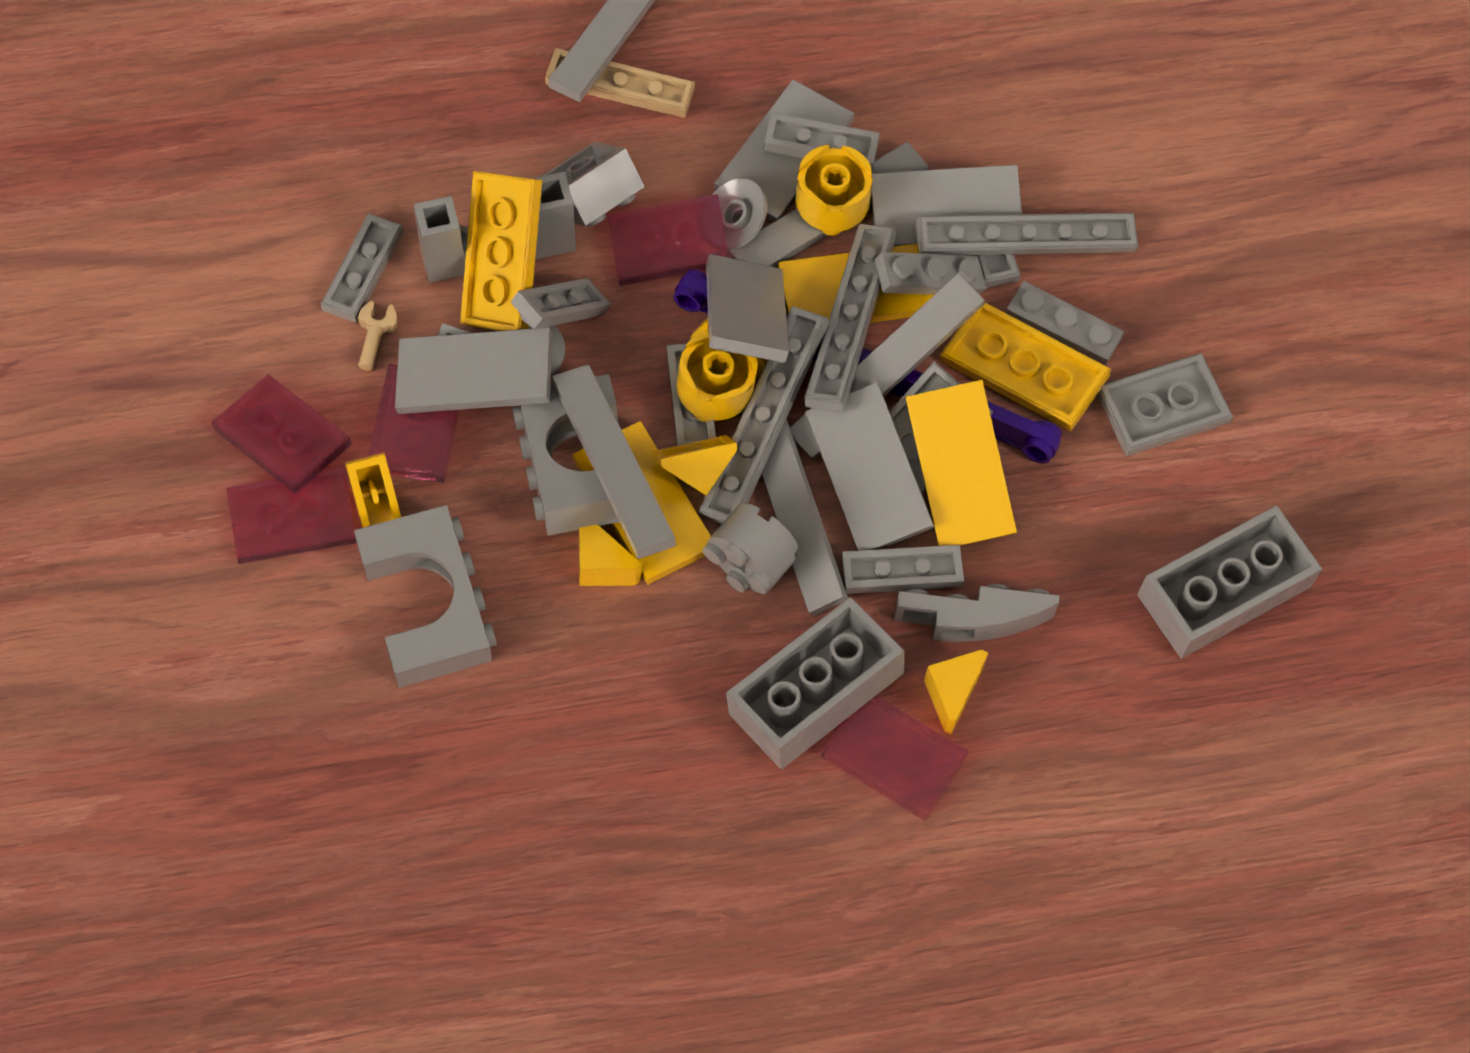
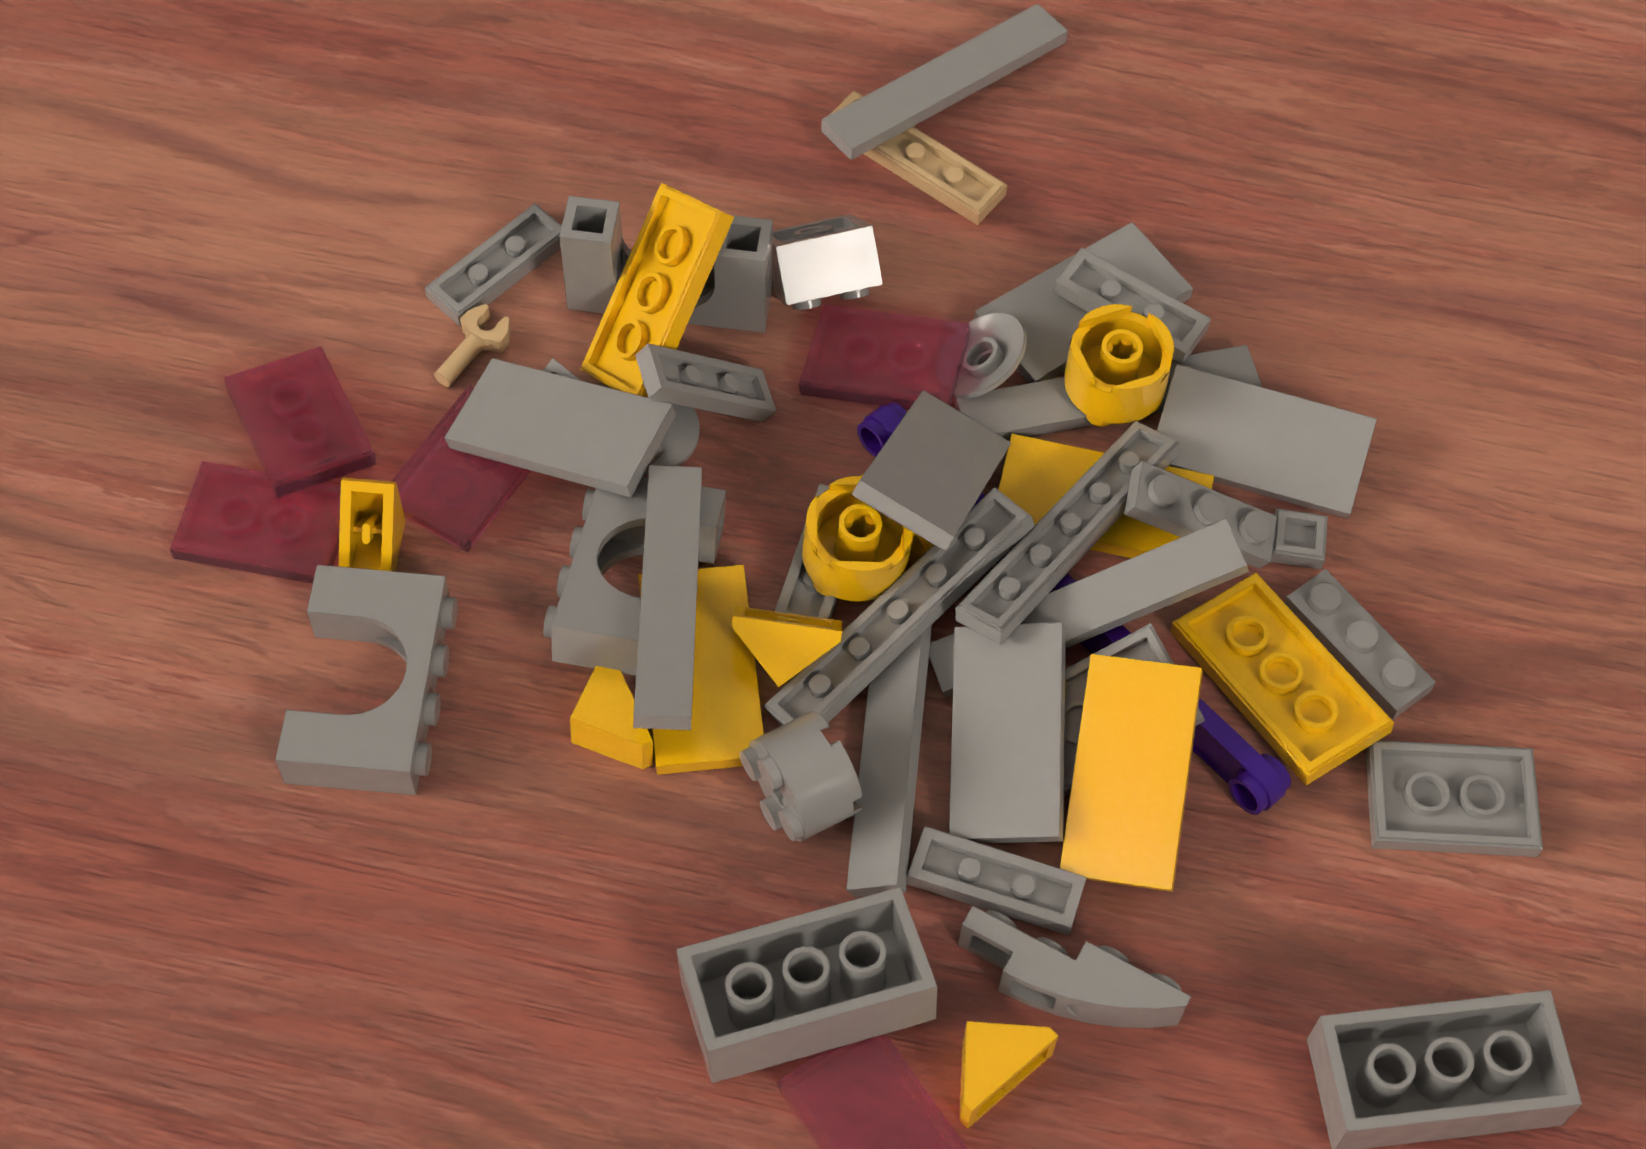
camera: 25 degrees right, 5 degrees down
(1027, 234) = (1356, 511): light grey tile -> none

